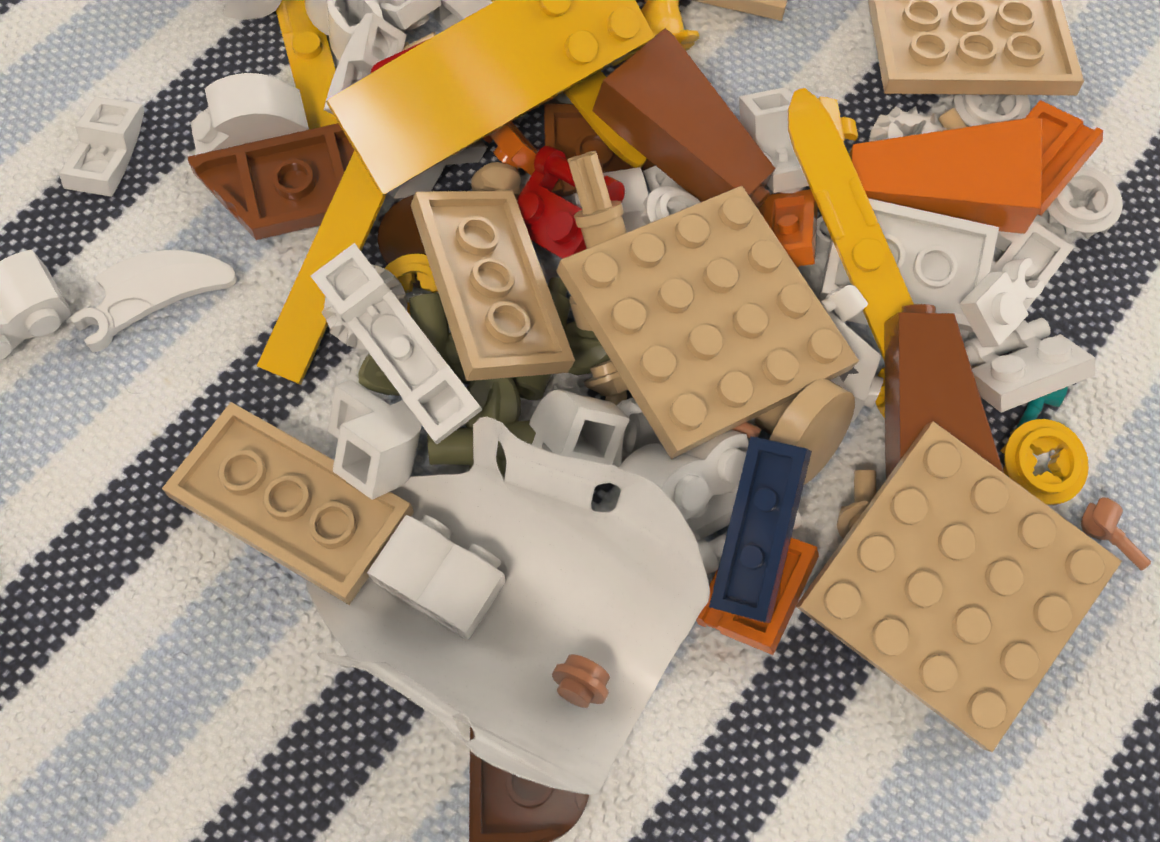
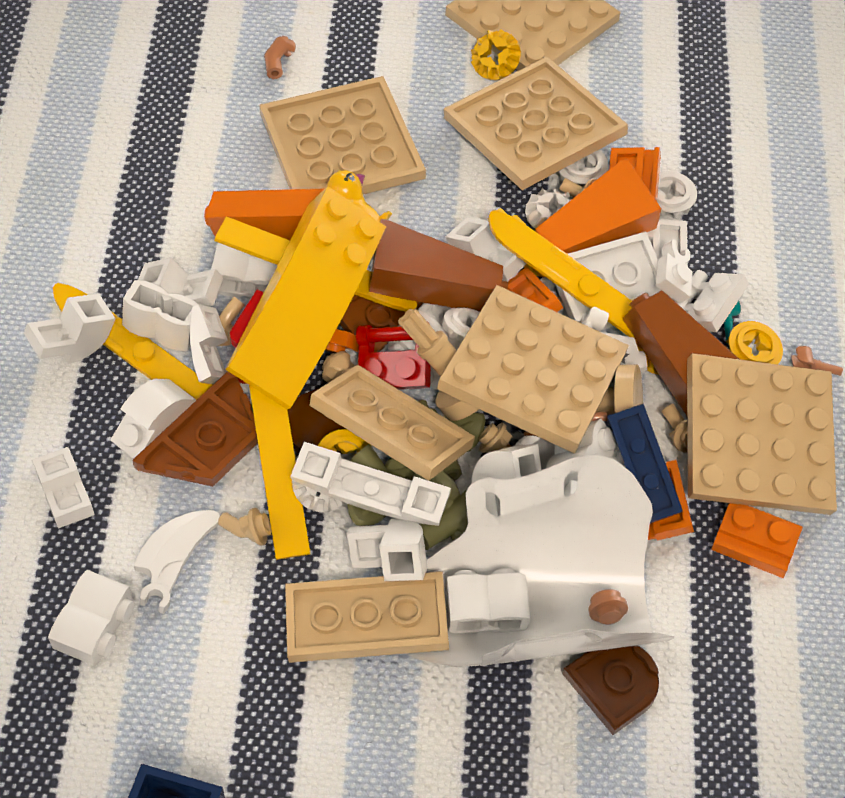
camera: 35 degrees left, 10 degrees down
(254, 311) = (252, 526): none -> tan plate
(855, 718) = (757, 538): none -> orange plate

